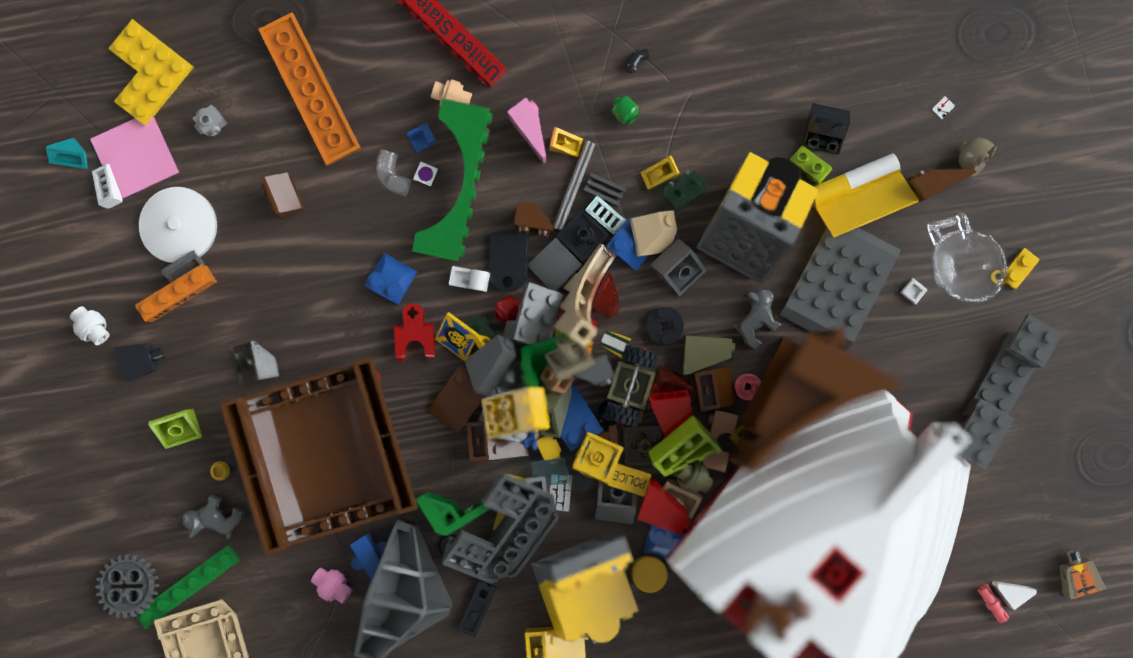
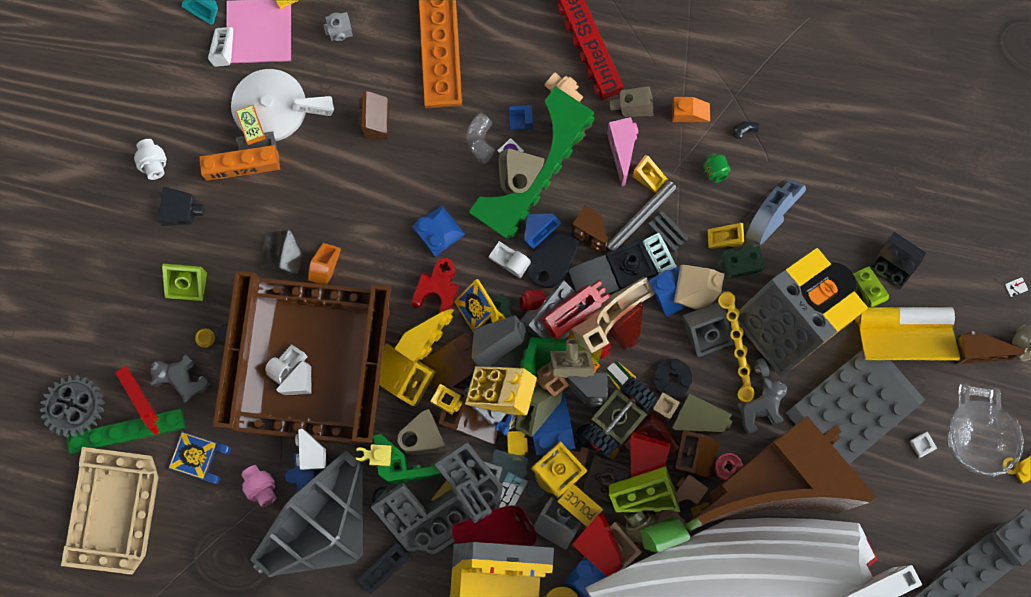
camera: 25 degrees right, 10 degrees down
(169, 253) = (250, 124): none -> tile
(185, 555) = (139, 399): none -> red hinge
(224, 207) = (314, 105): none -> white slope
(261, 583) = (194, 456): none -> flag
(298, 356) = (323, 264): none -> orange slope
(306, 467) = (281, 368): none -> white plate
(324, 476) = (298, 381): none -> white slope
(365, 537) = (311, 453): none -> white slope
(418, 393) = (418, 341): none -> yellow slope
(419, 429) = (404, 377): none -> yellow slope
(427, 516) = (379, 455): none -> light yellow plate
(441, 187) = (518, 165): none -> dark tan hose
(460, 434) = (438, 396): none -> yellow window
(463, 474) = (427, 435): none -> dark tan hose
(483, 238) = (539, 227): none -> blue slope
(529, 78) = (634, 102): none -> dark tan torso
(545, 312) = (567, 314): none -> red hinge
(545, 531) = (480, 515): none -> dark grey tile
(563, 533) = (497, 528): none -> dark red piece
(578, 63) = (690, 110): none -> orange slope
(669, 356) = (665, 407): none -> tan panel
(688, 239) = (727, 301): none -> yellow bar
(693, 130) = (772, 210): none -> sand blue slope
(717, 477) = (664, 535): none -> bright green brick
(741, 283) = (761, 368): none -> dark grey tile

